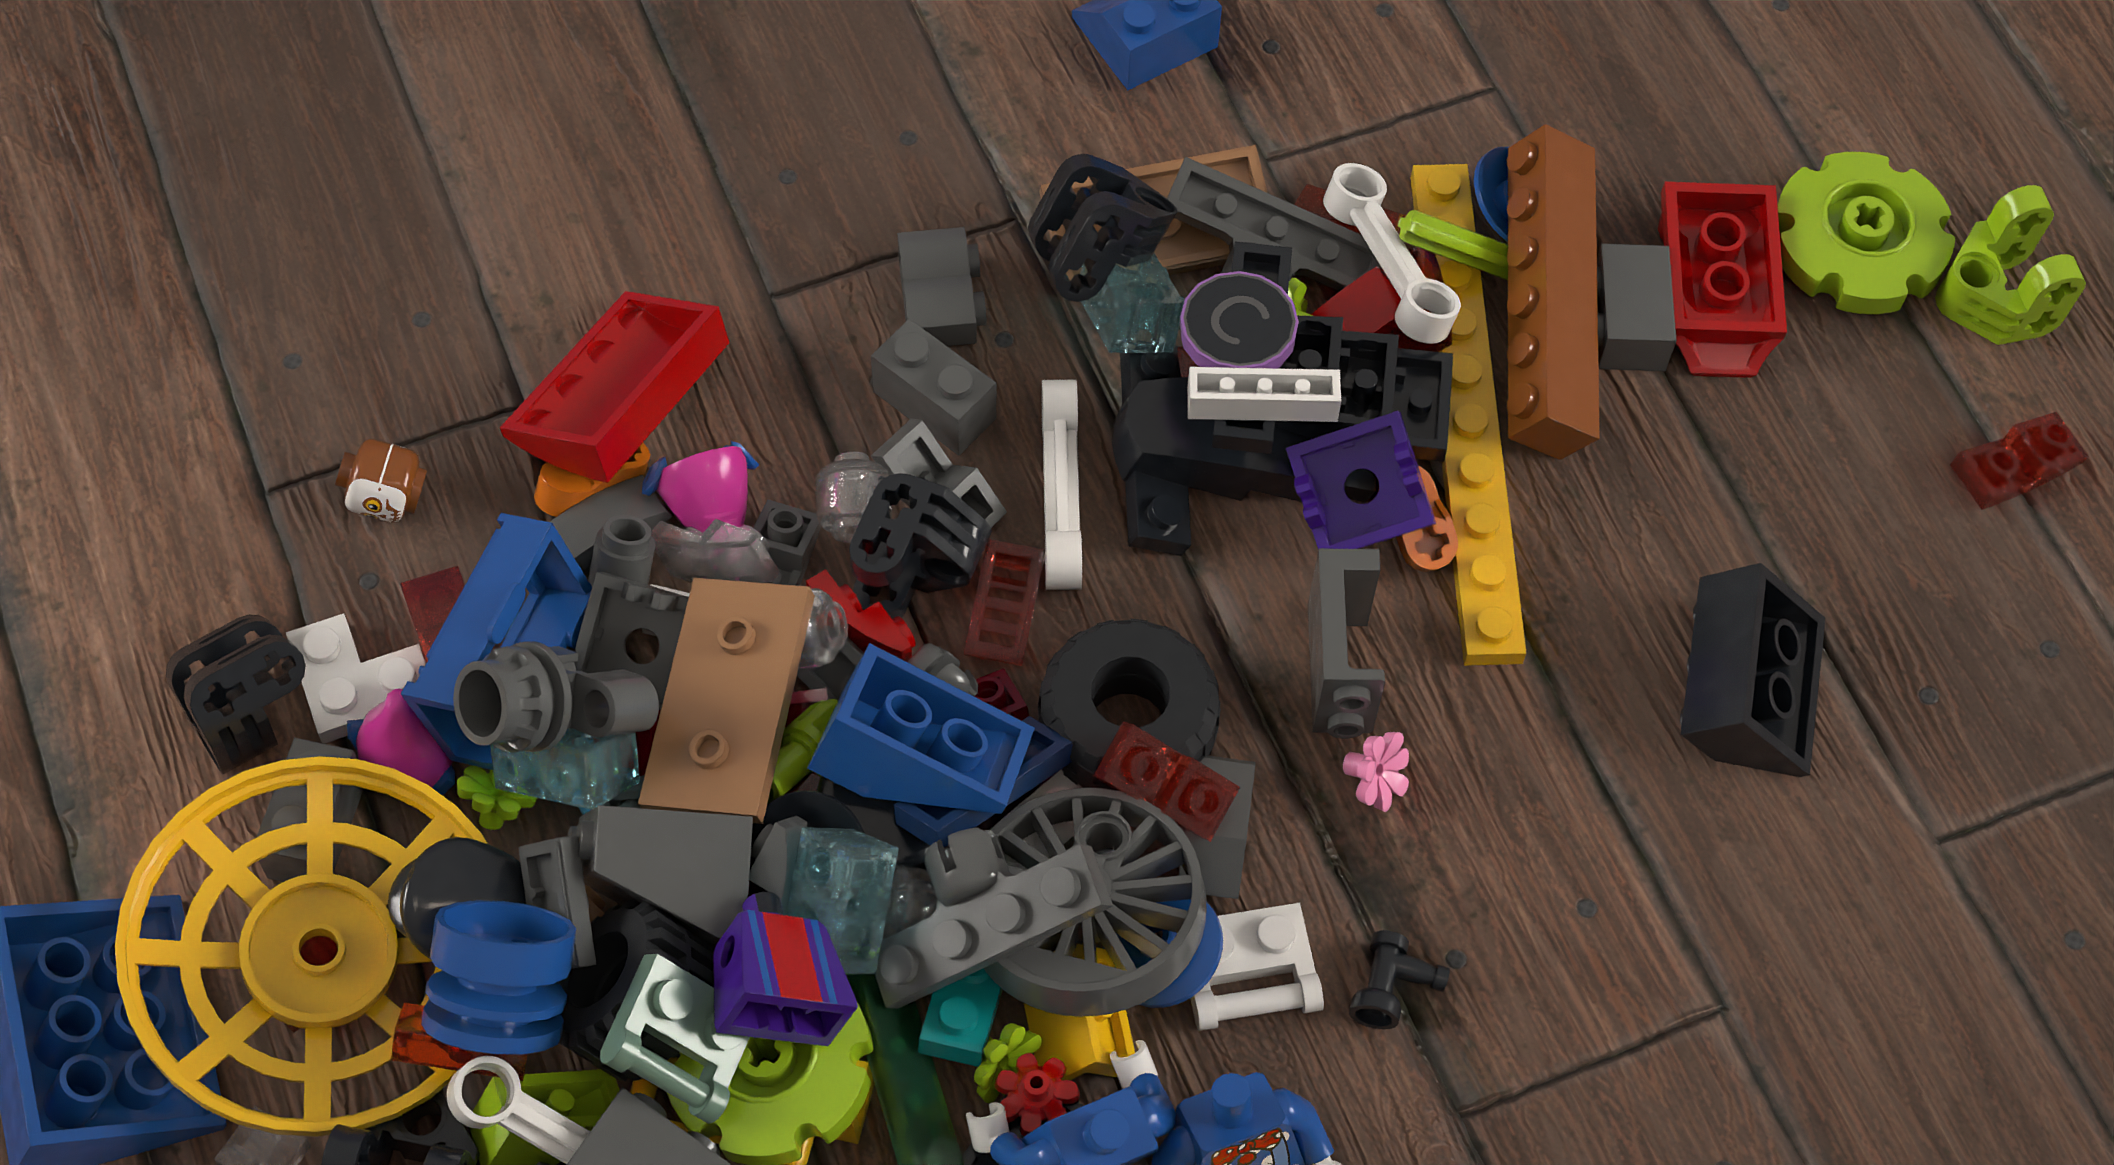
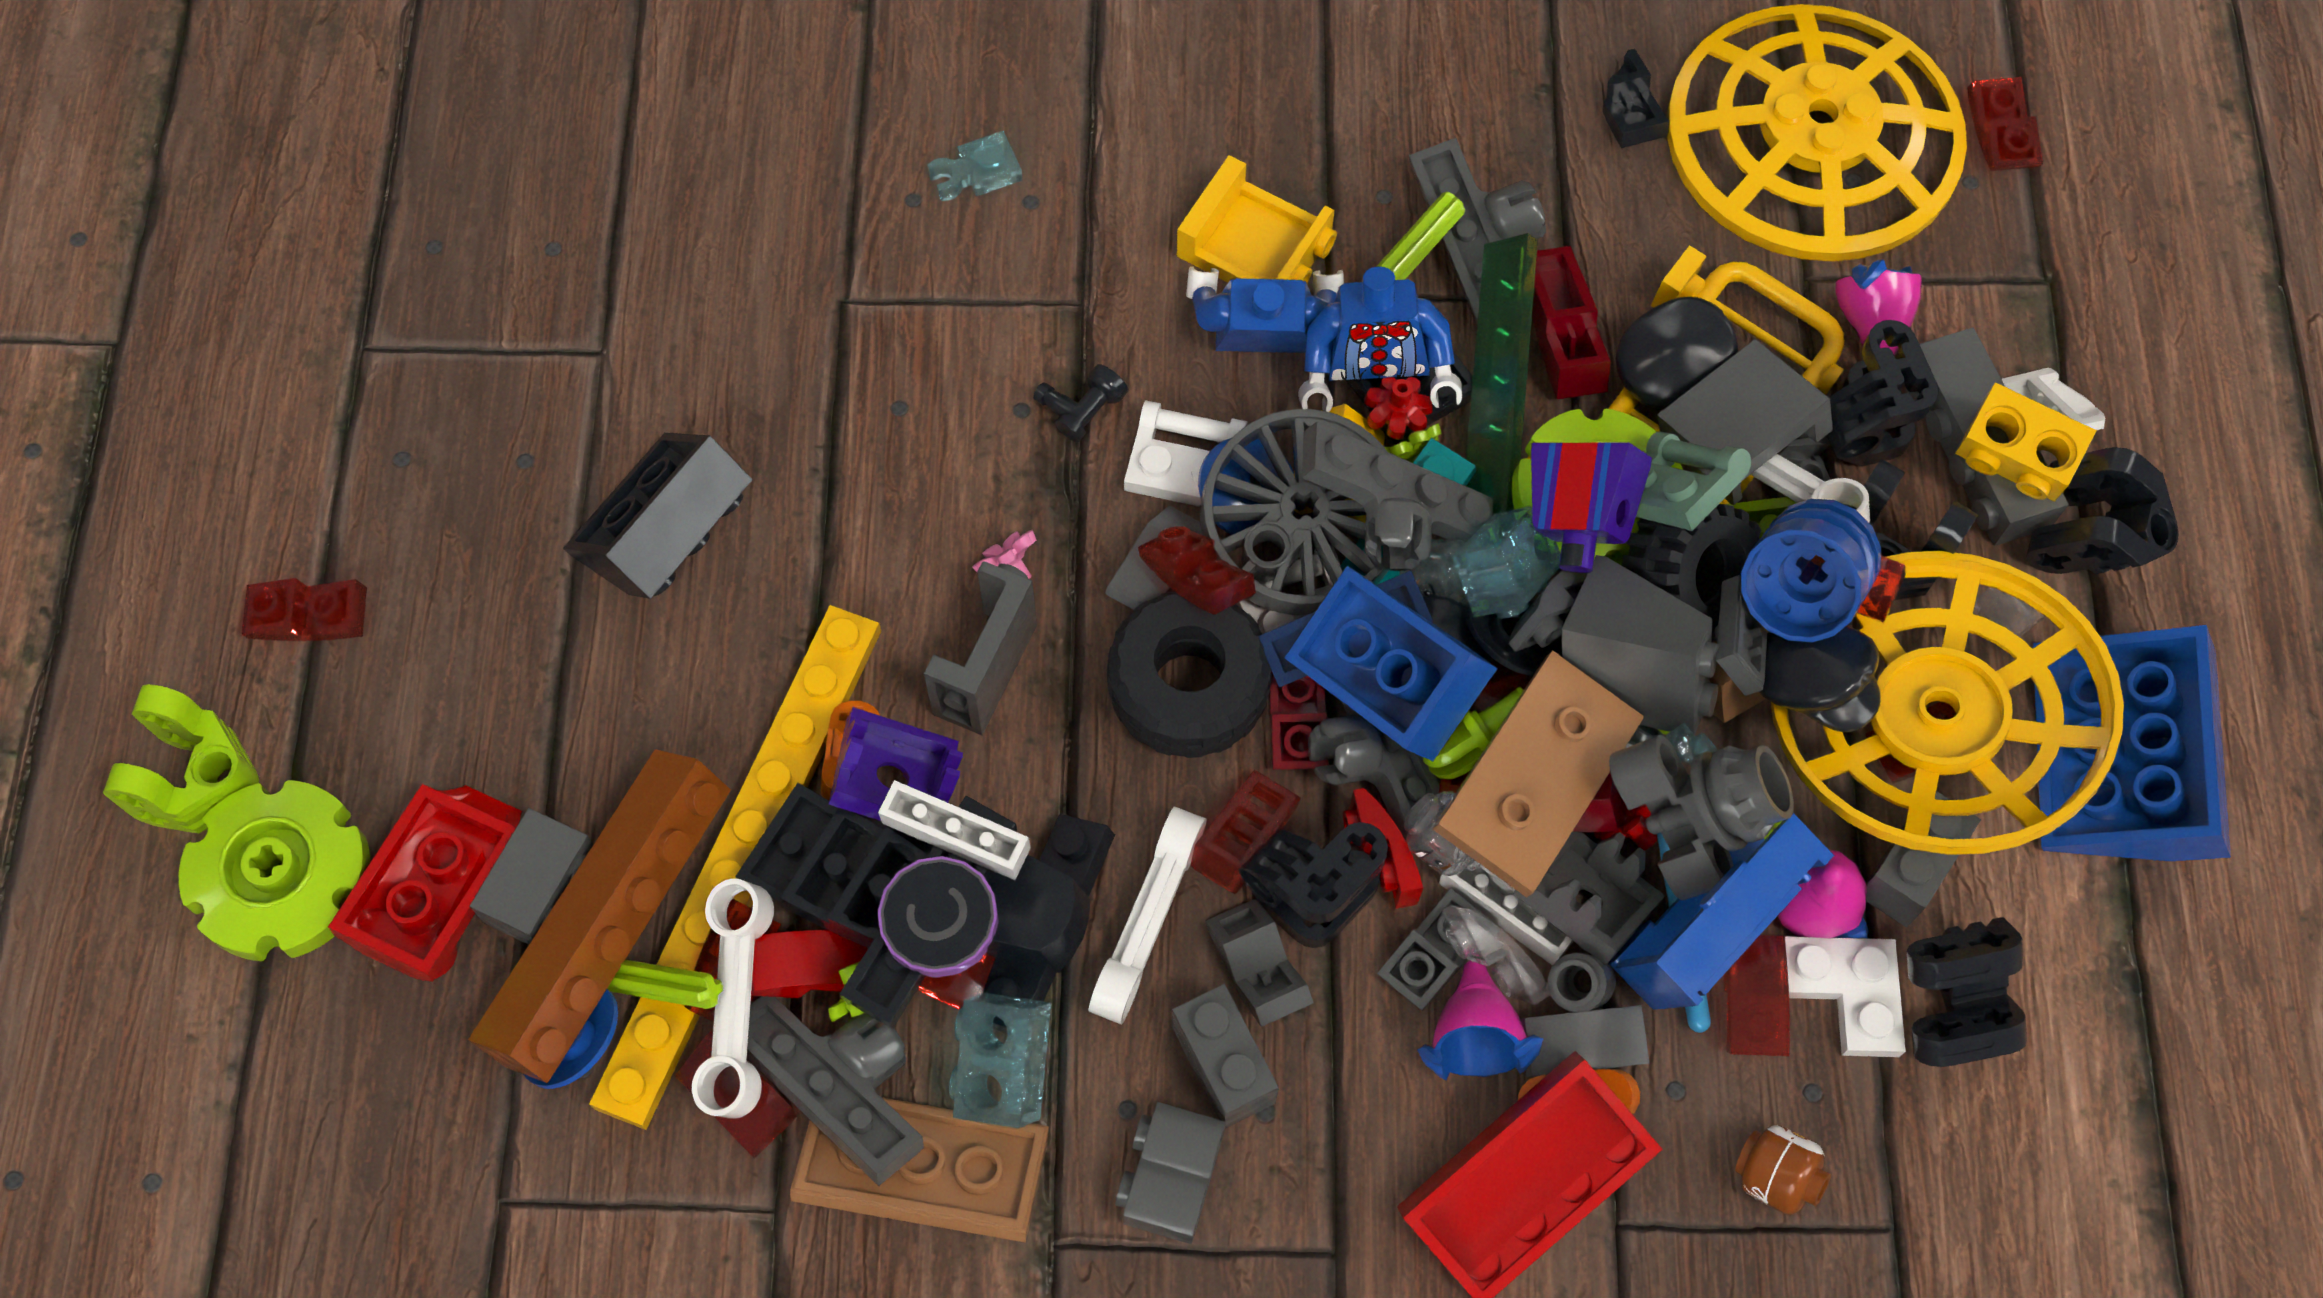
camera: 155 degrees left, 5 degrees up
(845, 491) = (1344, 971): clear head -> none
(1123, 205) = (965, 1110): black piece -> none

